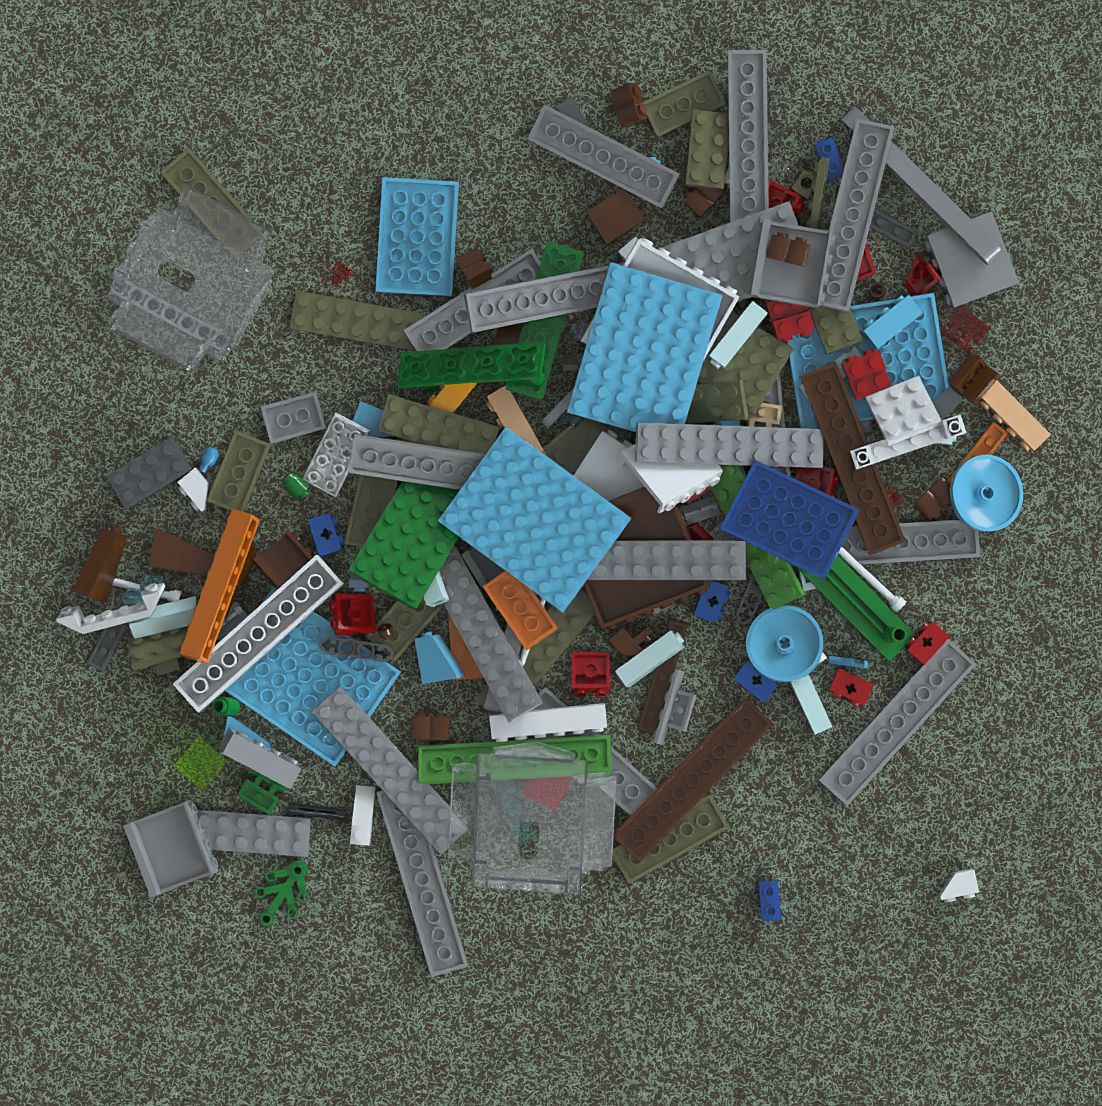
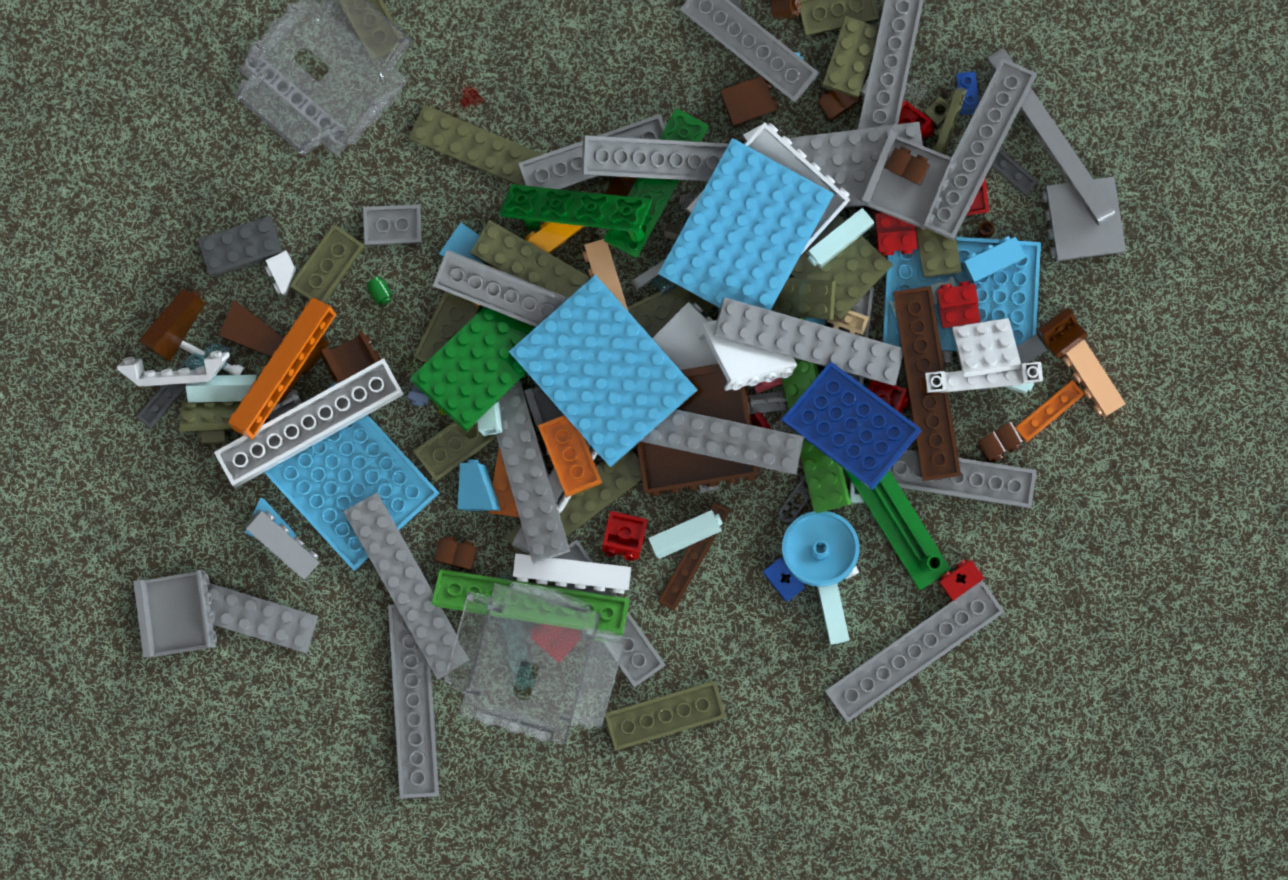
camera: 15 degrees right, 5 degrees down
(201, 763) = (224, 537): clear neon green brick -> none
(208, 459) = (301, 246): dark azure cylinder -> none
(226, 706) = (261, 487): green brick -> none
(259, 796) = (272, 583): green plate -> none
(284, 890) = (276, 681): green plant -> none
(316, 811) = (317, 607): black pin -> none
(317, 528) = (393, 333): blue brick -> none
(332, 458) = (417, 275): white tile -> none
(352, 614) = (405, 426): red plate -> none
(356, 647) = (400, 462): dark grey beam -> none
(362, 815) = (369, 625): white slope -> none
(385, 630) = (433, 449): reddish brown hinge -> none
(417, 237) = (552, 79): medium azure plate -> none
(474, 268) = (601, 119): reddish brown brick -> none
(627, 645) = (666, 516): reddish brown brick -> none
(676, 709) = (699, 590): light grey bracket -> none
(692, 780) = (700, 662): reddish brown plate -> none
(703, 607) = (749, 497): blue brick -> none
(769, 900) = (749, 797): blue brick -> none
(848, 662) = (879, 581): medium azure tile -> none
(861, 687) = (886, 607): red brick -> none
(894, 497) = (960, 431): clear red tile -> none
(895, 602) = (938, 533): white piece -> none
(921, 276) = (1032, 225): red slope -> none
(960, 884) = (941, 825): white slope -> none
(969, 324) = (1068, 280): clear red plate -> none
(986, 493) = (1050, 447): medium azure dish -> none

